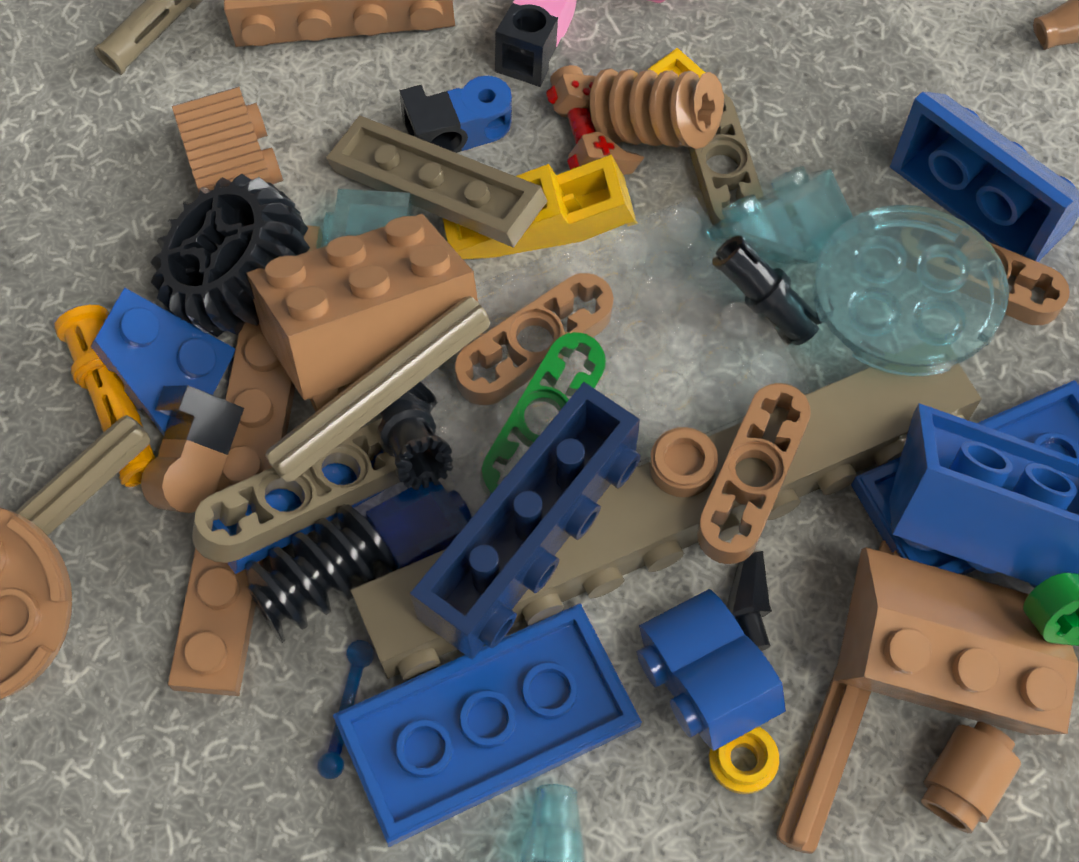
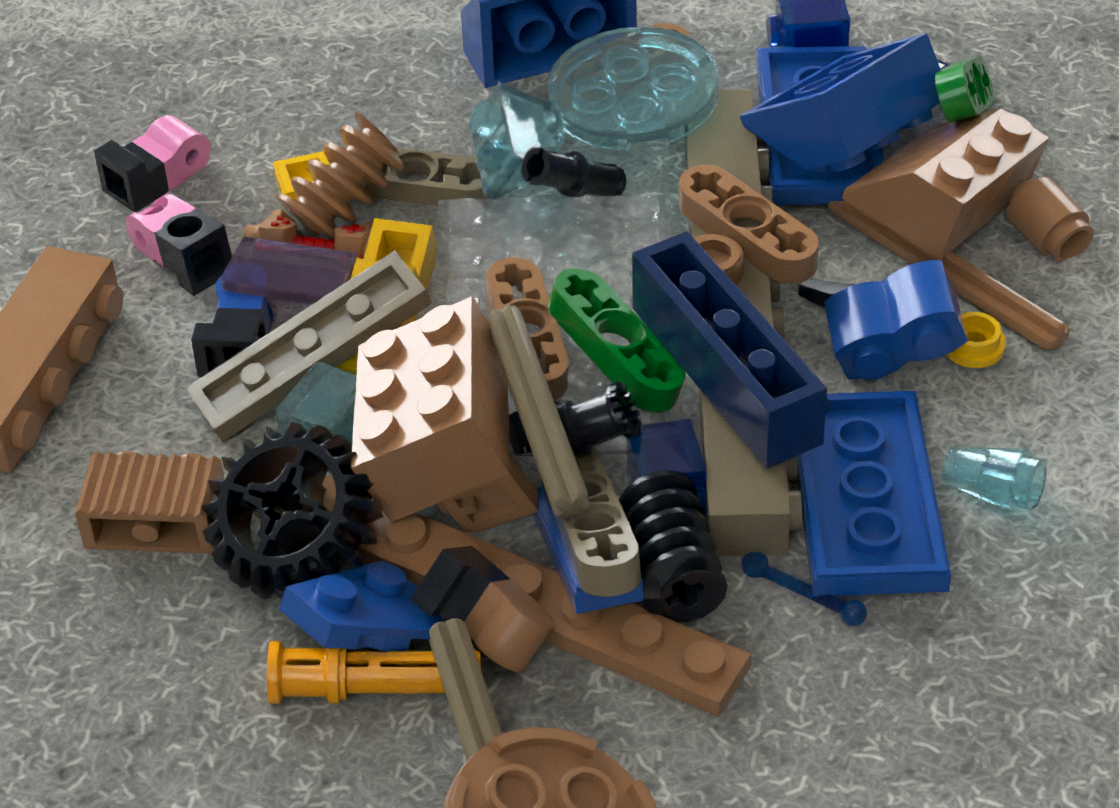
camera: 65 degrees left, 20 degrees down
(514, 121) = (286, 270): none -> clear purple panel

